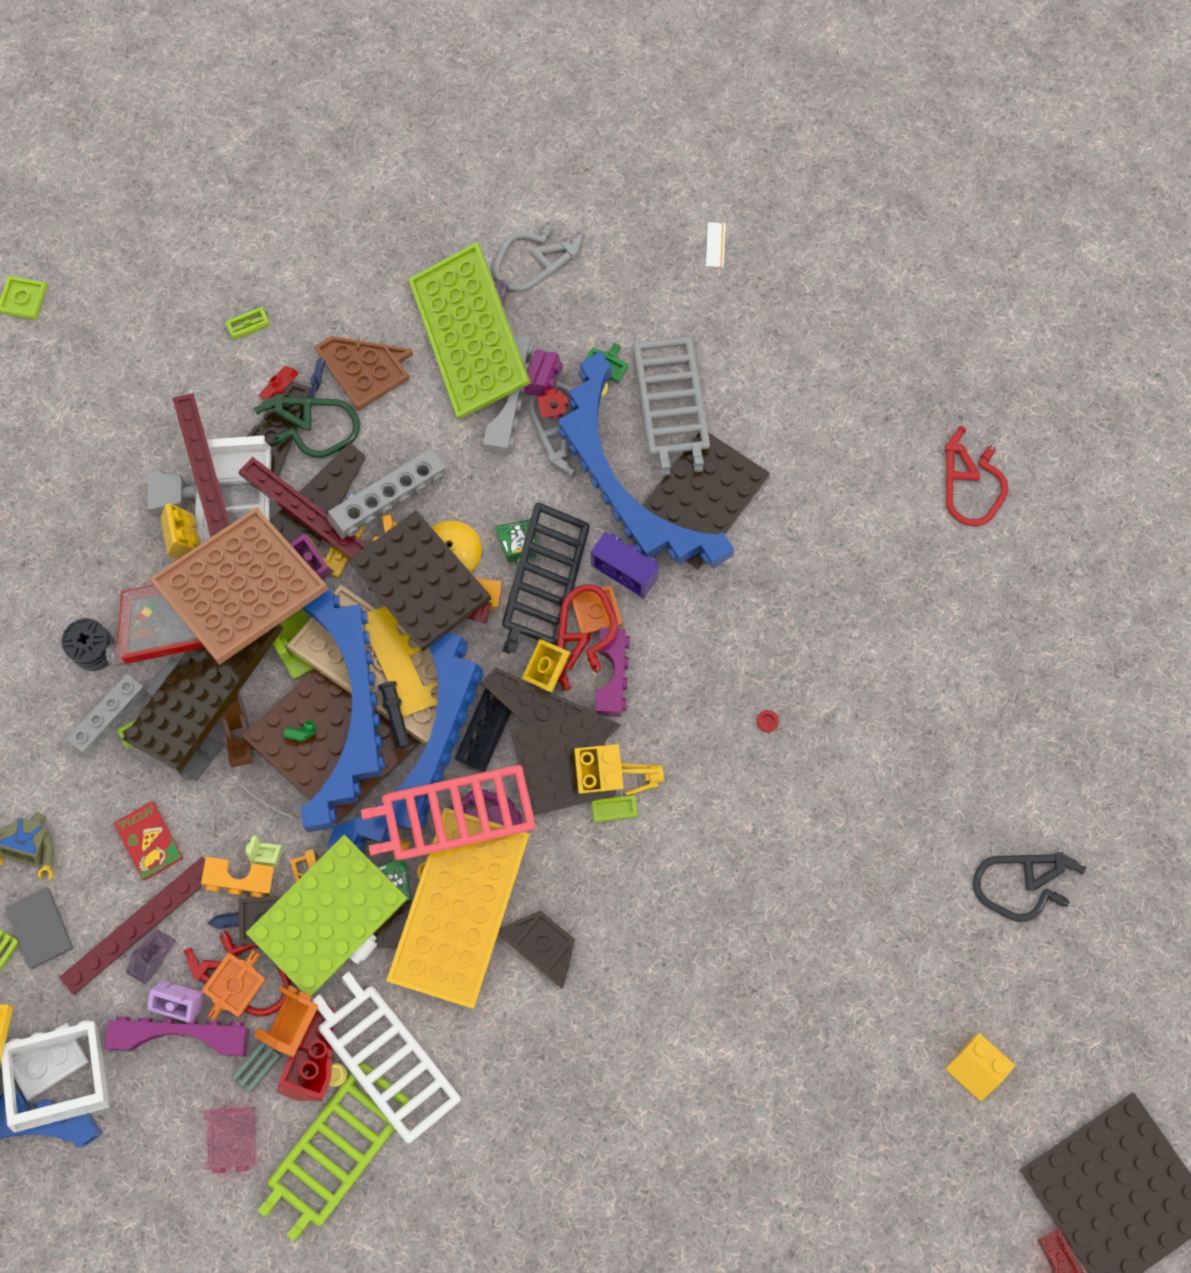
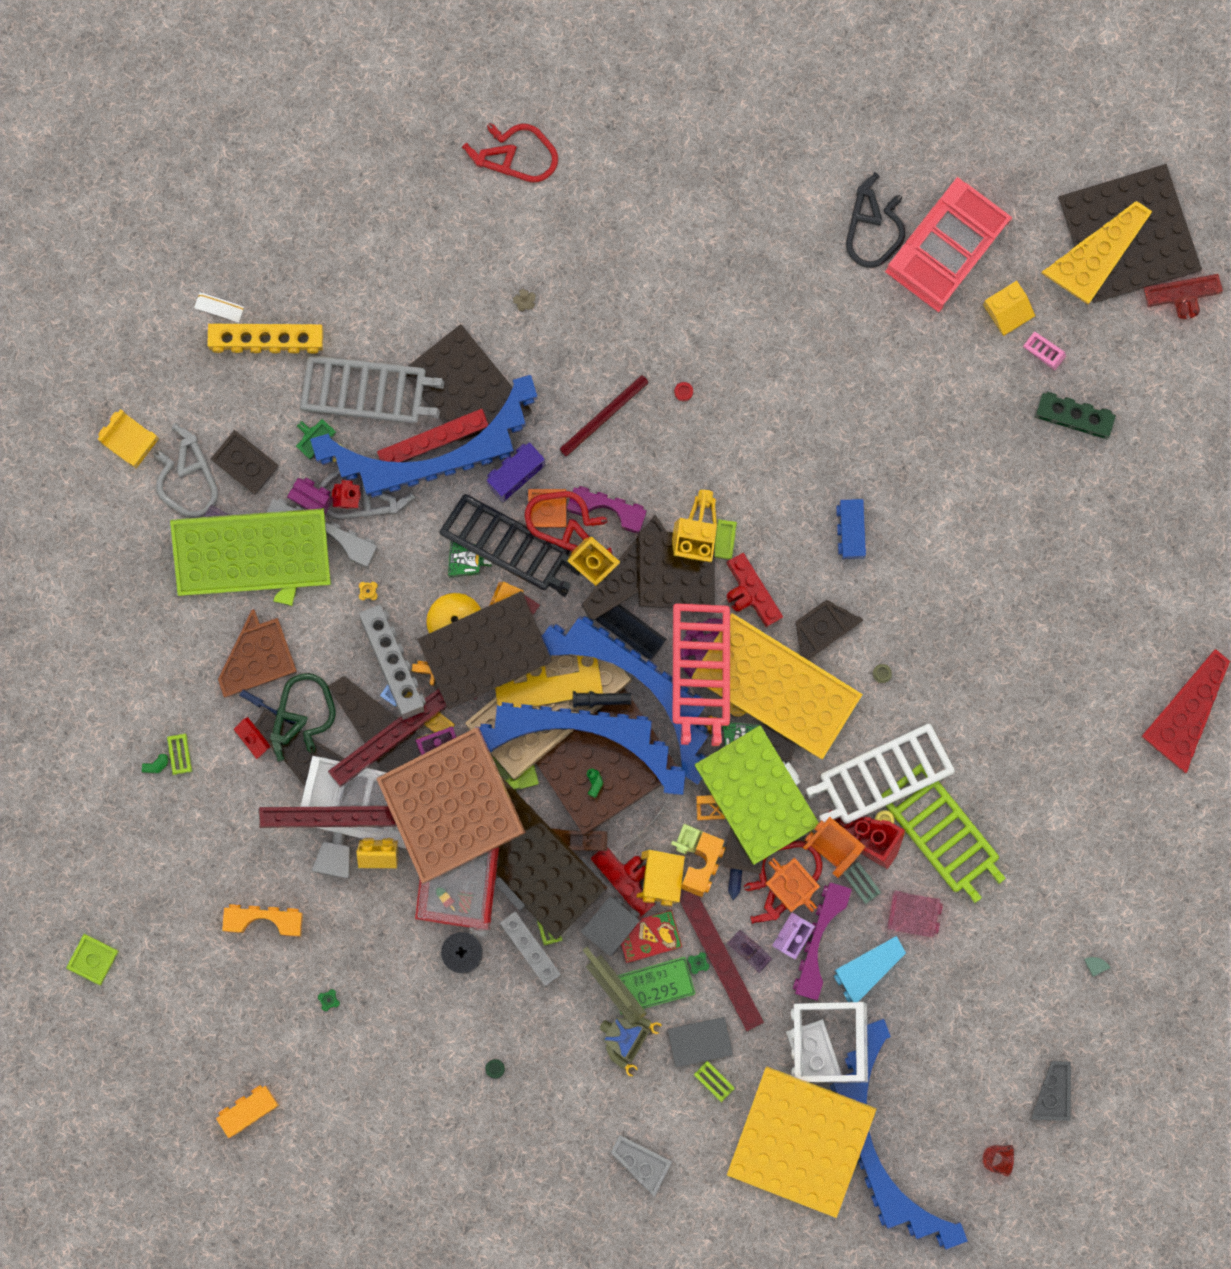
camera: 75 degrees left, 10 degrees up
(18, 522) = (327, 1005): none -> green plate
(76, 811) = (614, 988): none -> olive fence
(91, 464) = (238, 919): none -> light orange arch
(94, 859) = (659, 983): none -> bright green tile
(122, 900) = (703, 964): none -> green plate
(150, 794) = (611, 924): none -> dark grey panel
(155, 1100) = (865, 971): none -> medium azure slope
(206, 799) = (624, 878): none -> red plate
(211, 834) = (662, 877): none -> yellow panel
(231, 306) = (157, 766): none -> green arm
(434, 380) = (285, 596): none -> lime tile
(460, 450) = (372, 594): none -> yellow plate
(506, 1027) = (882, 673): none -> olive plate
(556, 194) = (127, 438): none -> yellow panel
(562, 305) = (244, 462): none -> dark brown plate
(562, 852) = (751, 591): none -> red plate
(639, 476) = (435, 438): none -> red plate
(664, 947) = (851, 529): none -> blue brick
(687, 246) = (217, 332): none -> yellow brick
(715, 644) = (604, 415): none -> dark red axle
(816, 529) = (524, 300): none -> dark tan plant
(868, 1194) = (1046, 413): none -> dark green brick
(942, 1145) = (1047, 360): none -> bright pink slope
(1032, 972) = (947, 244): none -> coral piece
(1073, 1155) = (1092, 260): none -> yellow wing

